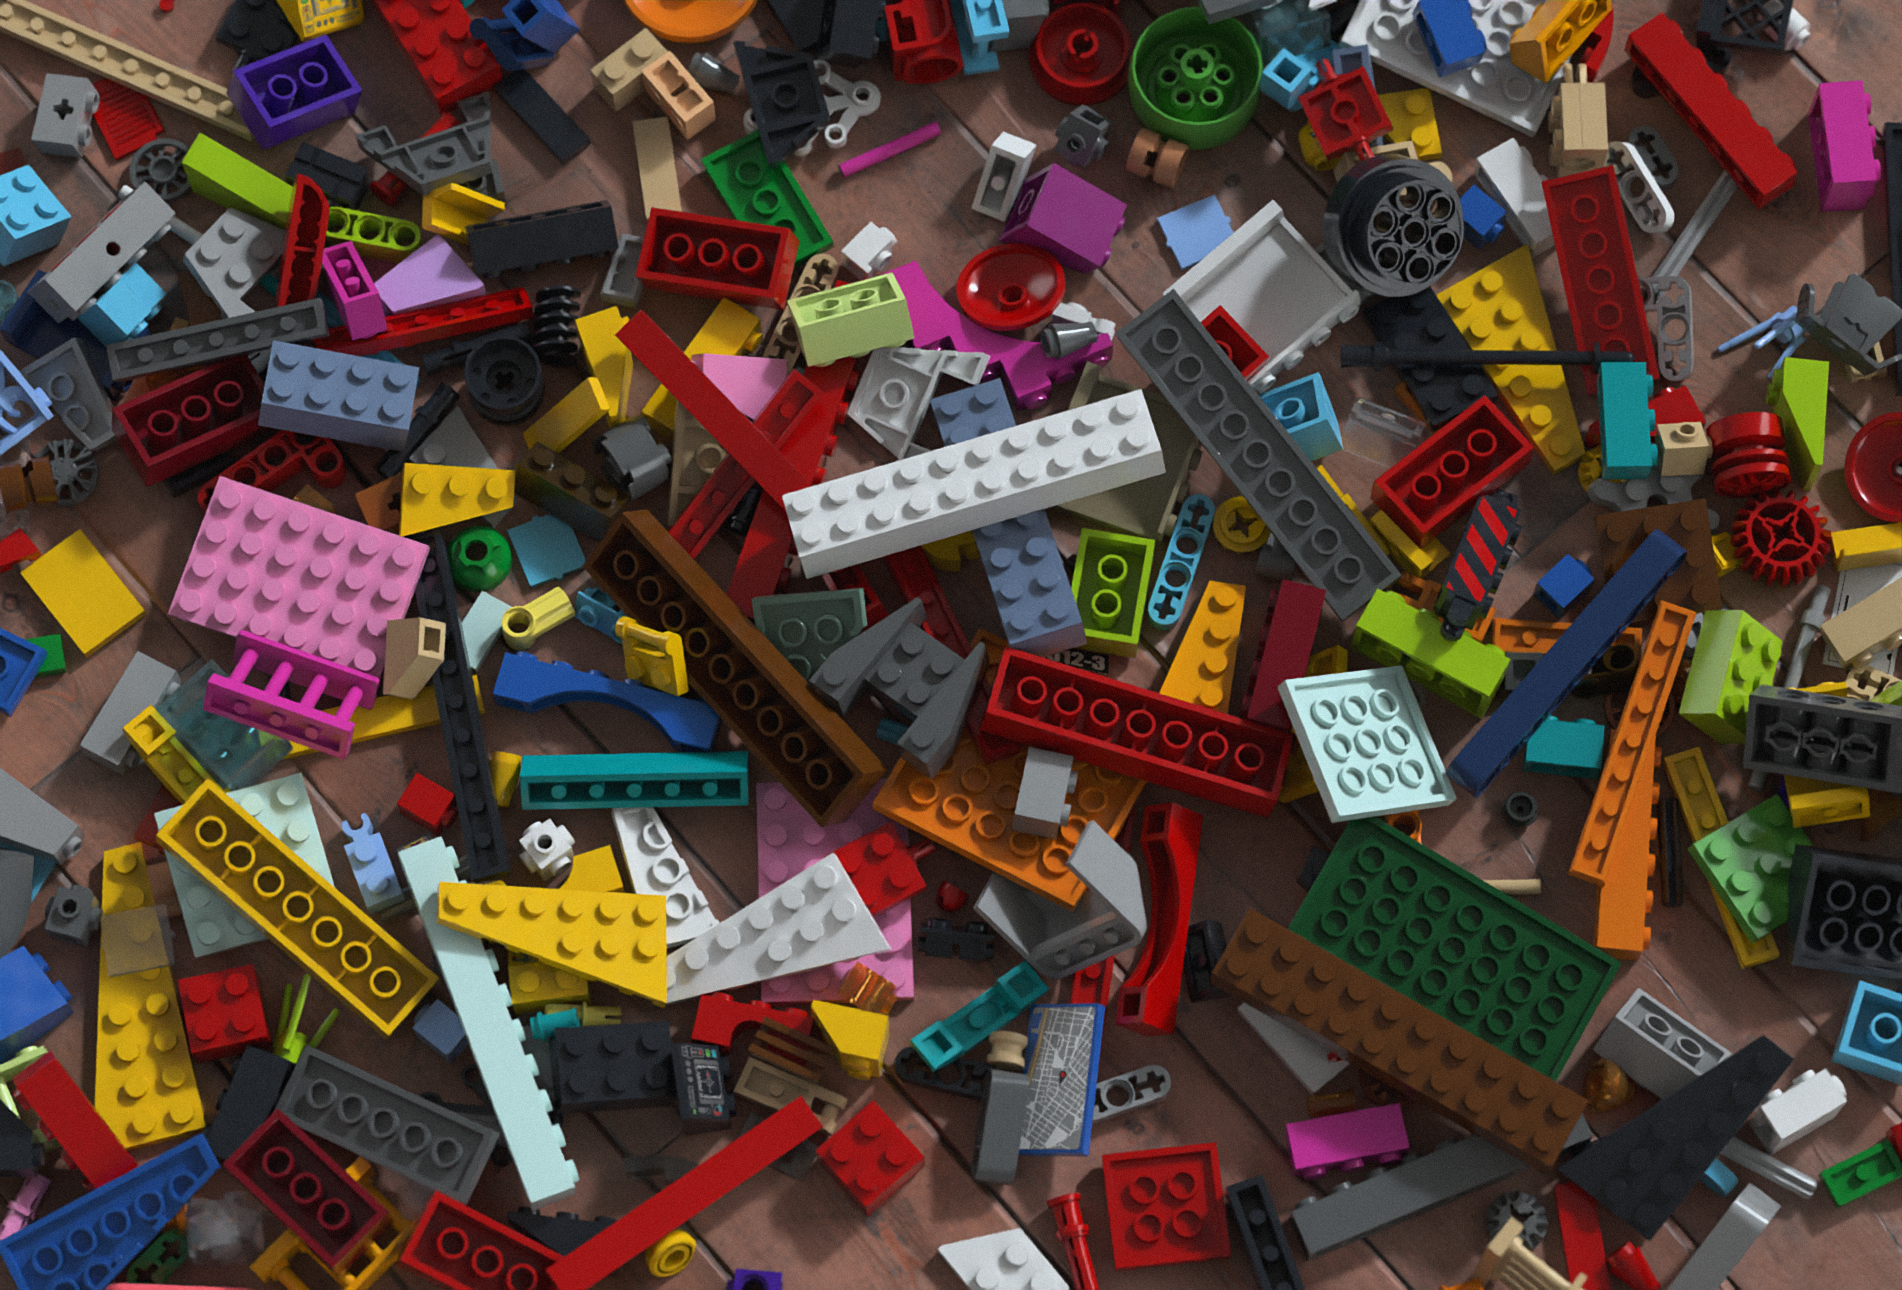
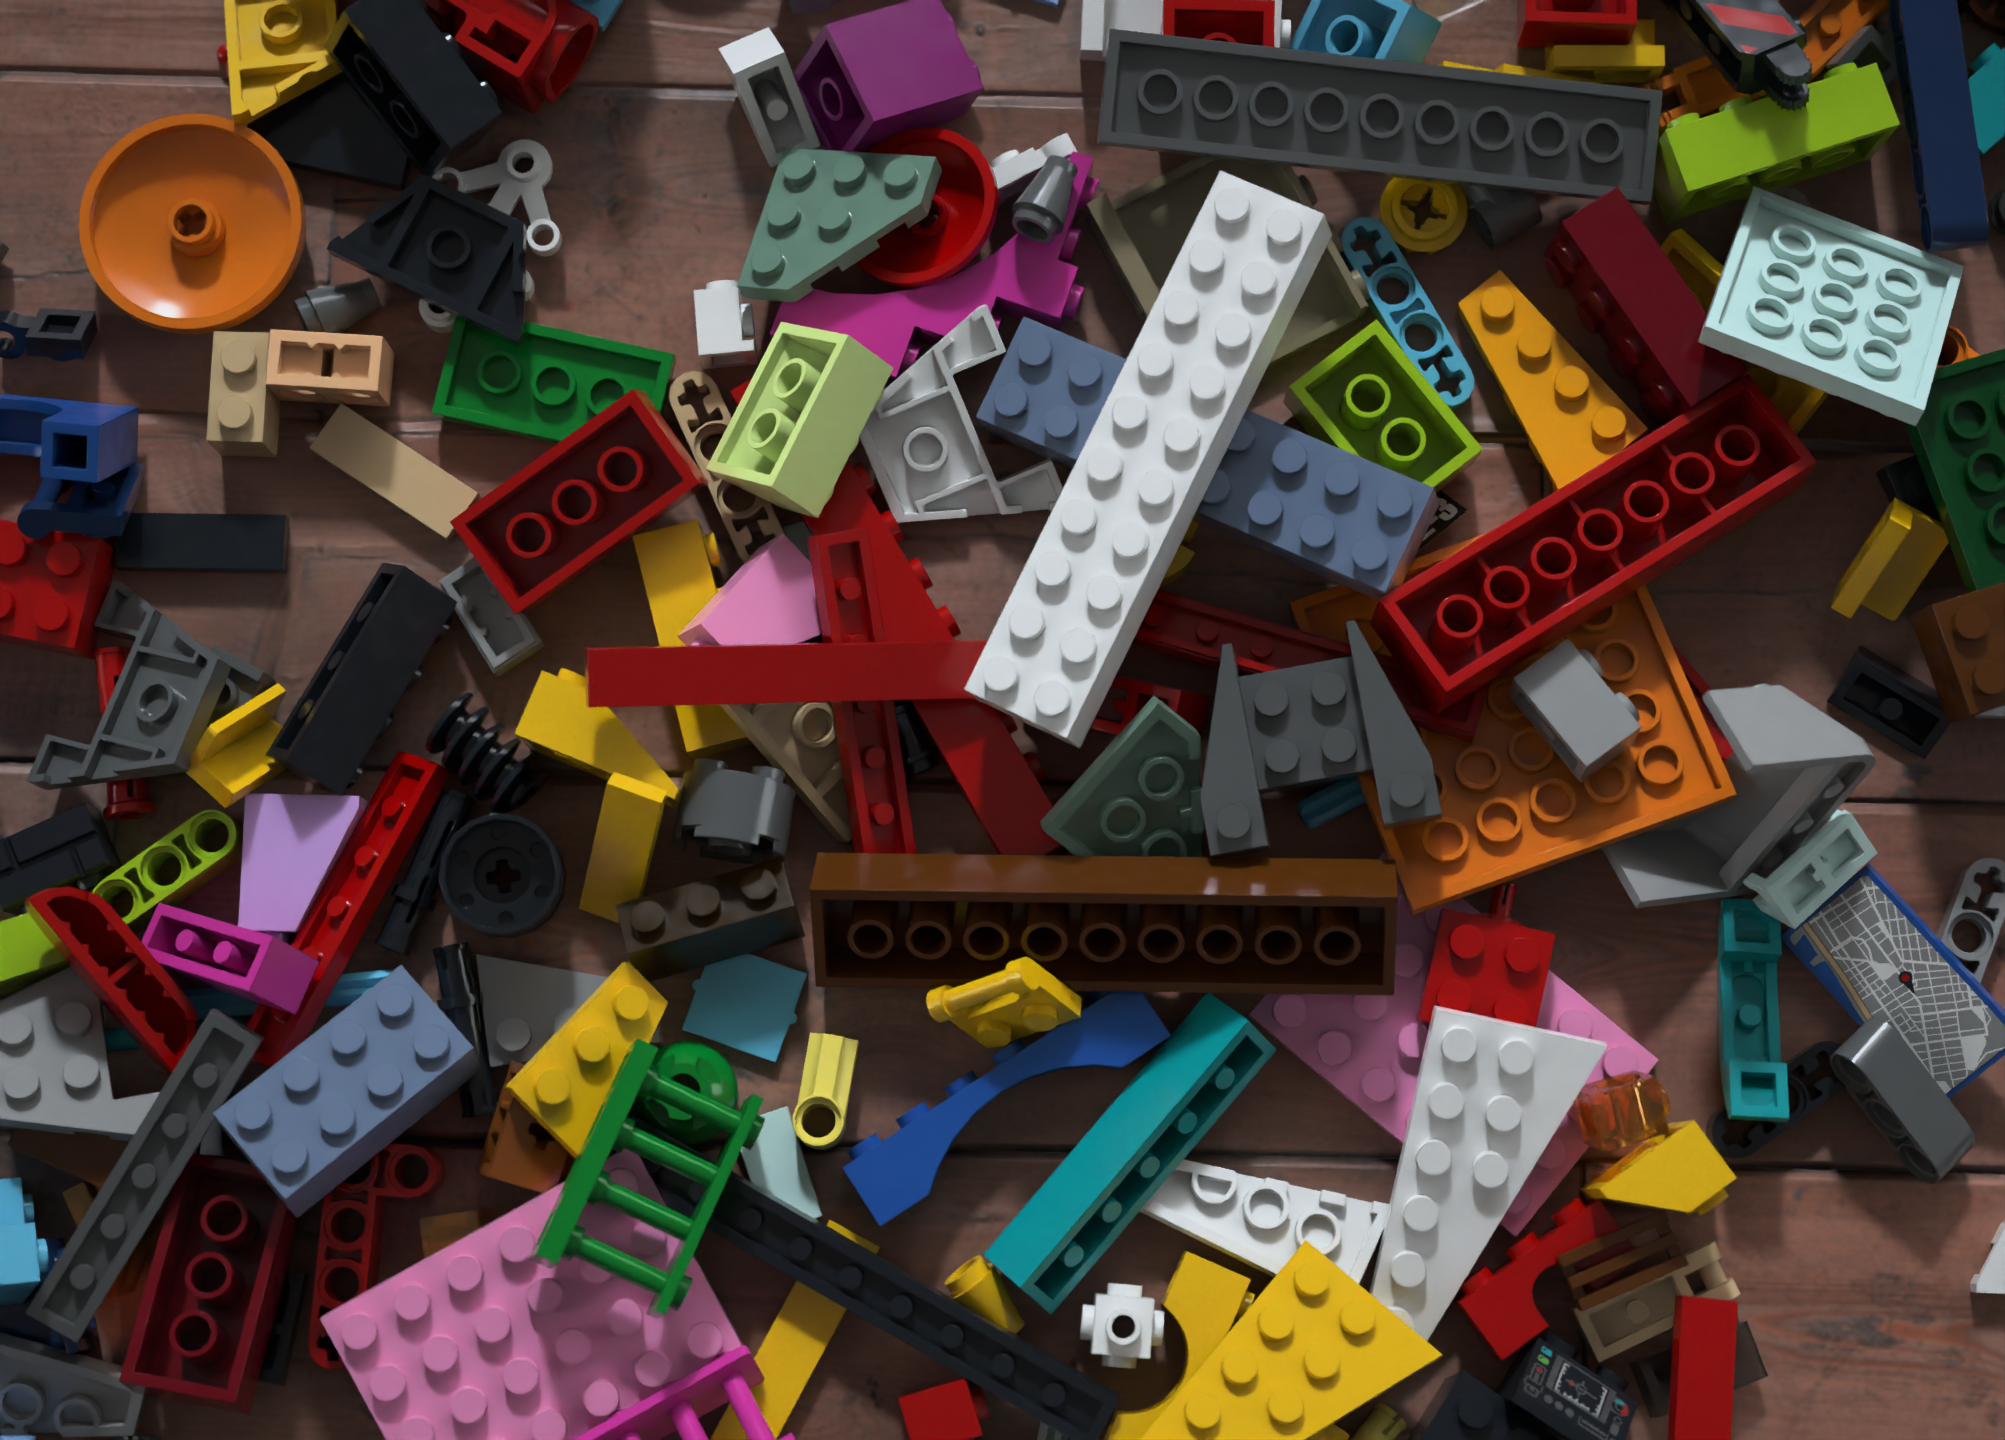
camera: 50 degrees left, 10 degrees up
(412, 655) = (749, 1280): tan slope -> none
(427, 526) = (592, 1185): none -> green fence
(597, 611) = (876, 1014): medium azure hinge -> none
(870, 1158) = (1812, 1277): red brick -> none
(889, 149) = (614, 193): dark pink bar -> none
(942, 936) = (1612, 965): black hinge -> none
(950, 897) = (1576, 914): red hinge -> none
(967, 249) = (829, 214): none -> sand green plate
(1007, 1050) = (1815, 1012): tan wheel -> none
(1073, 978) = (1813, 871): none -> light aqua hinge
(1171, 850) = (1747, 629): red arch -> none
(1270, 889) = (1891, 562): none -> yellow panel

